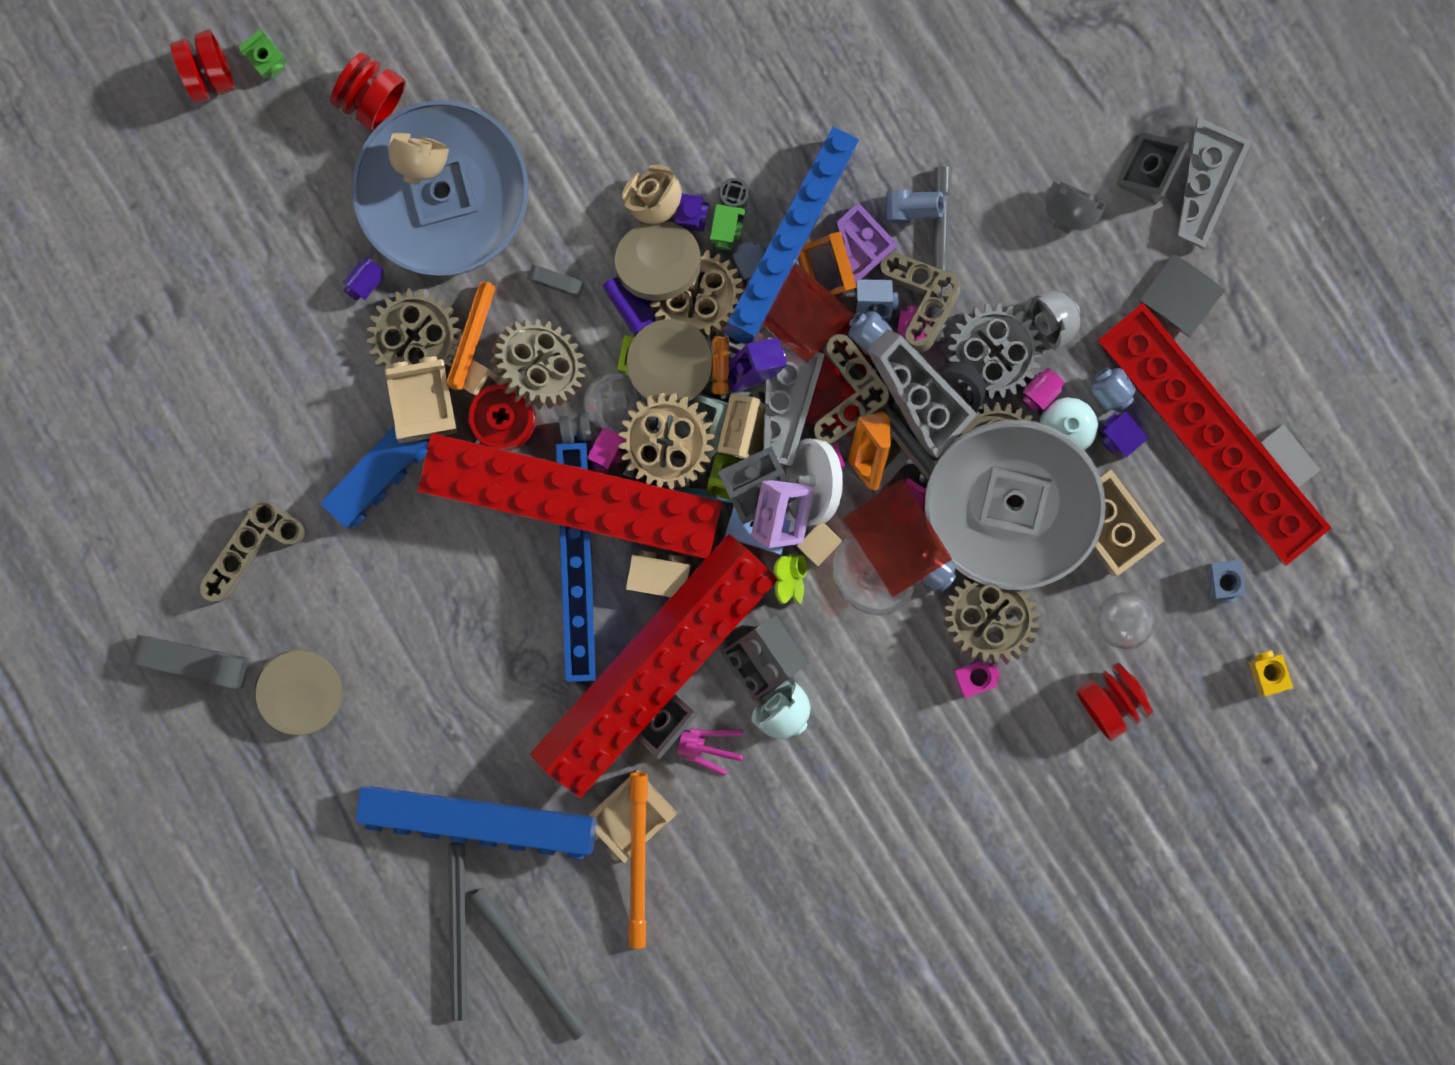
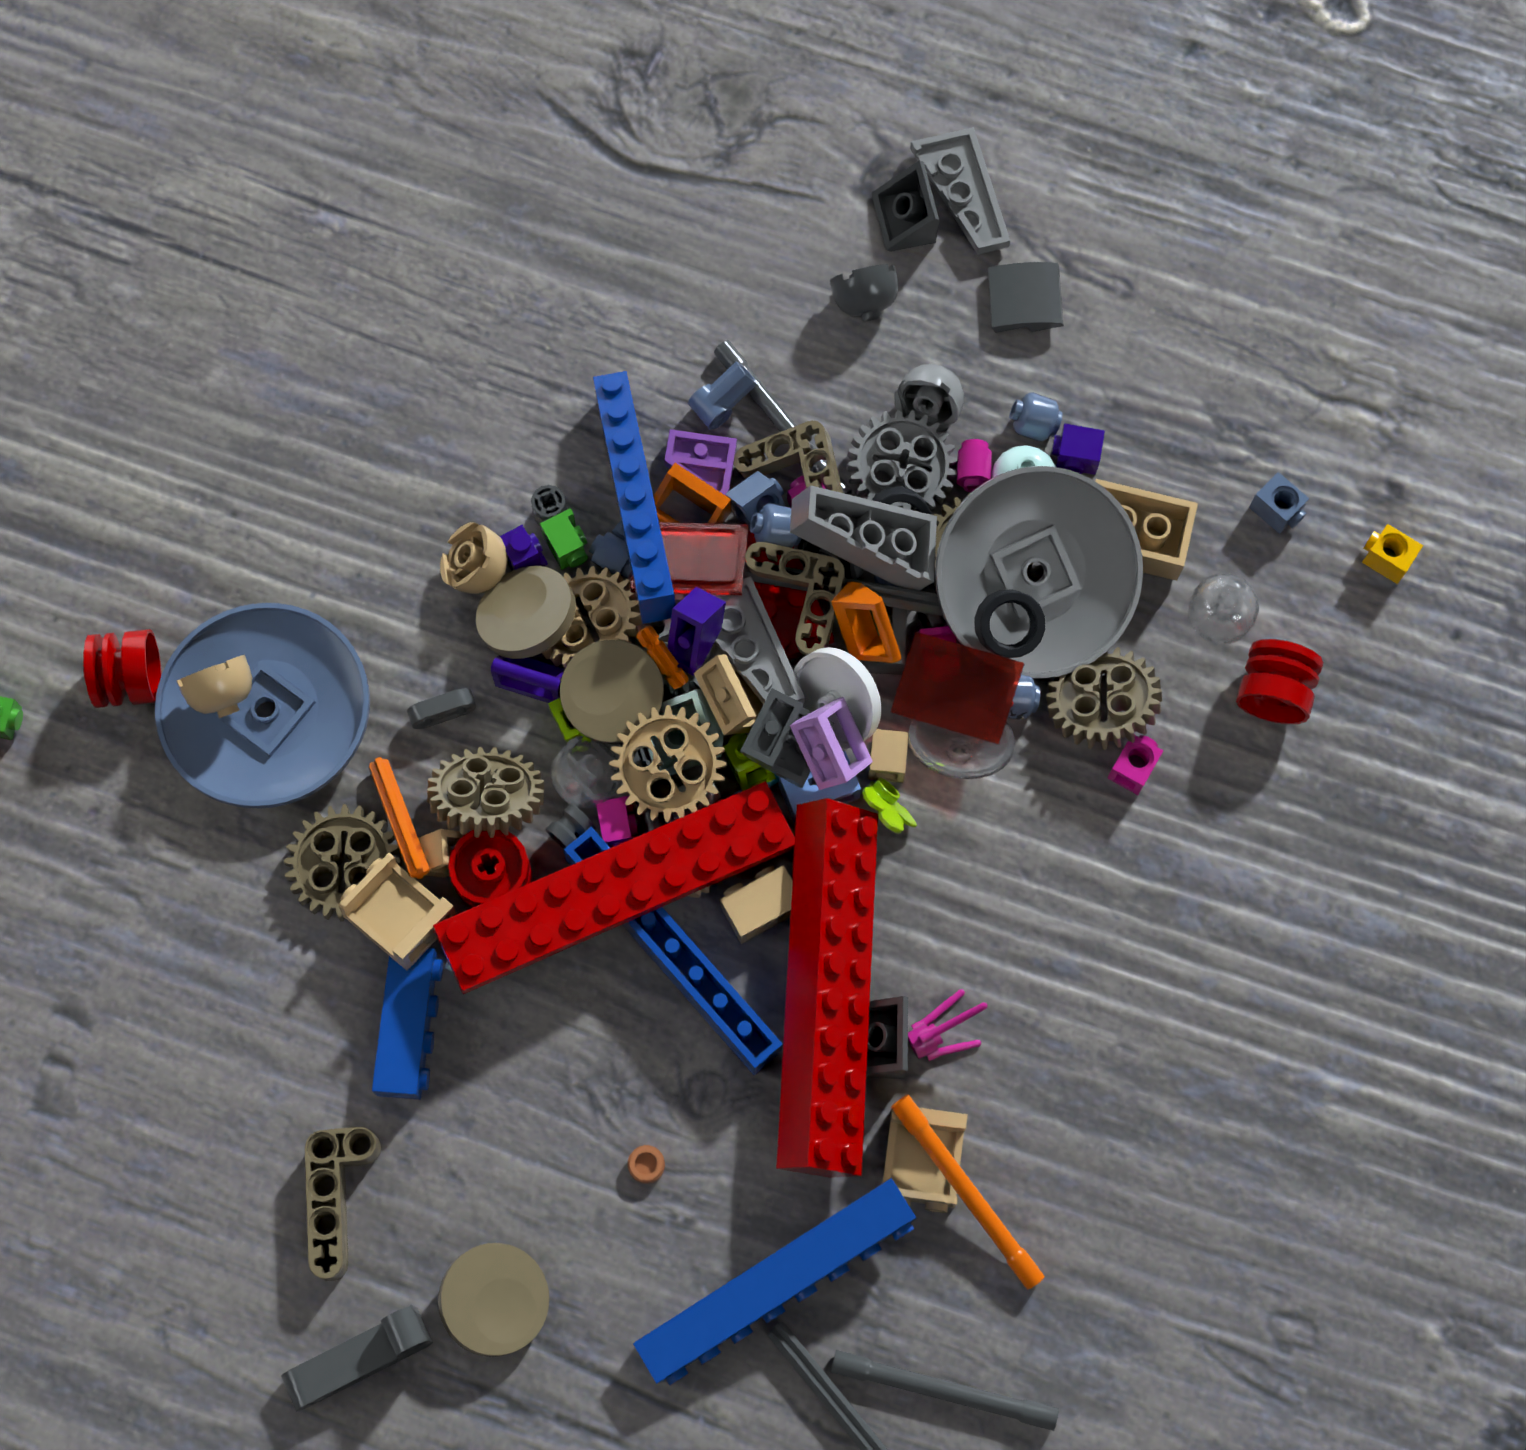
camera: 40 degrees left, 15 degrees down
(362, 279) = (250, 848): dark purple brick -> none
(457, 682) = (646, 1164): none -> nougat tile
(764, 657) = (925, 901): dark grey slope -> none
(784, 711) = (985, 934): light aqua cylinder -> none
(959, 546) = (1035, 631): none -> black tyre
(1214, 434) = (1159, 389): red plate -> none
(1290, 455) = (1238, 360): light grey tile -> none

